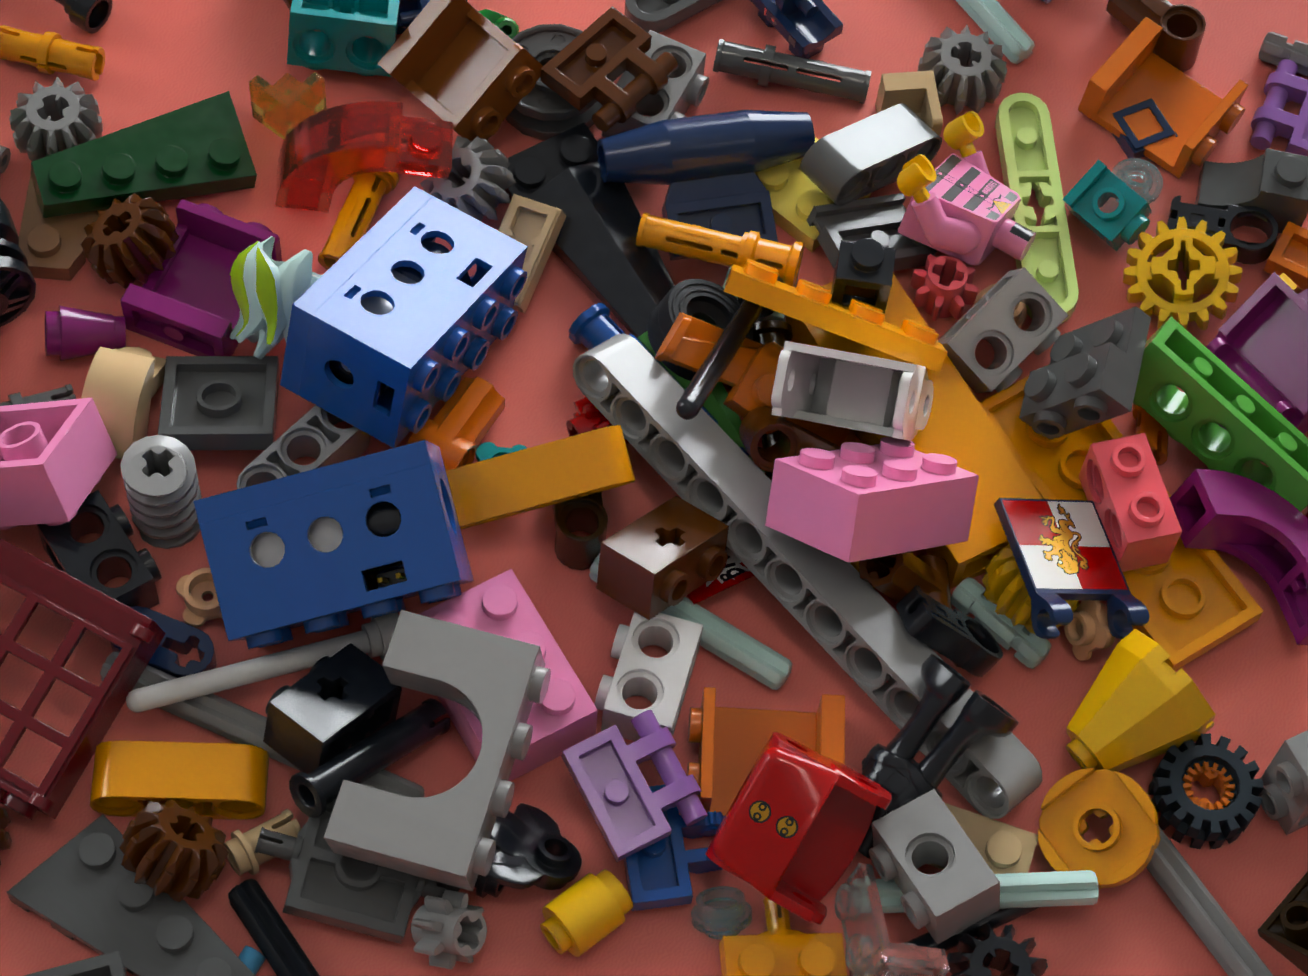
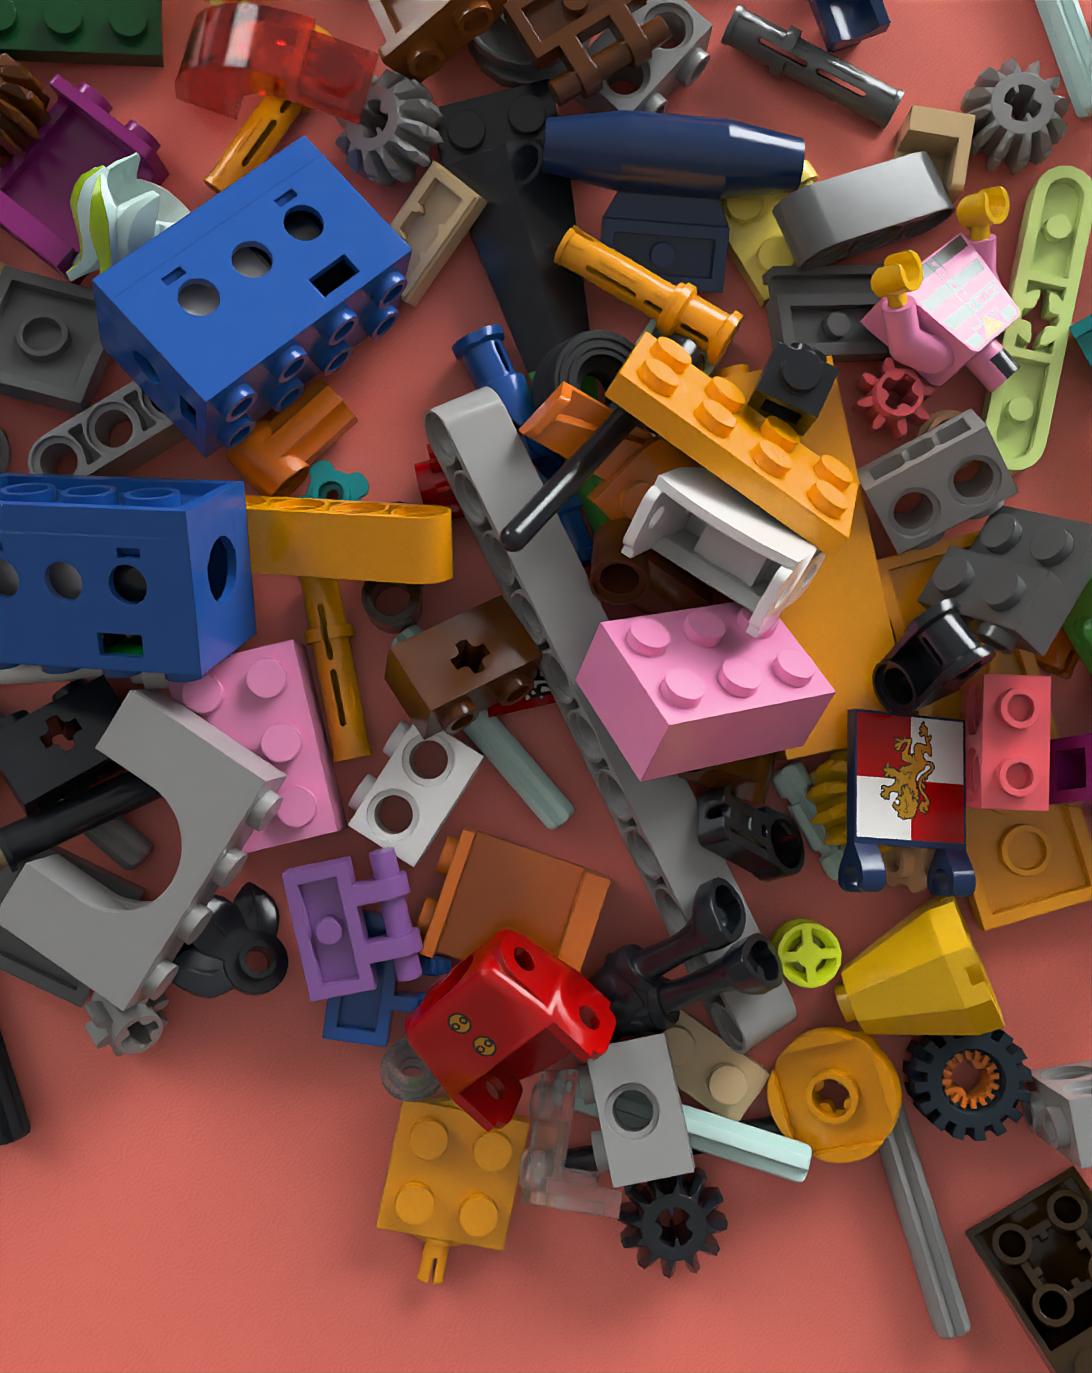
camera: 25 degrees right, 25 degrees up
(545, 594) = (335, 667): none -> light orange pin
(585, 913) = (272, 1032): yellow brick -> none
(1037, 714) = (817, 953): none -> neon yellow wheel
(1045, 443) = (929, 660): none -> black piece

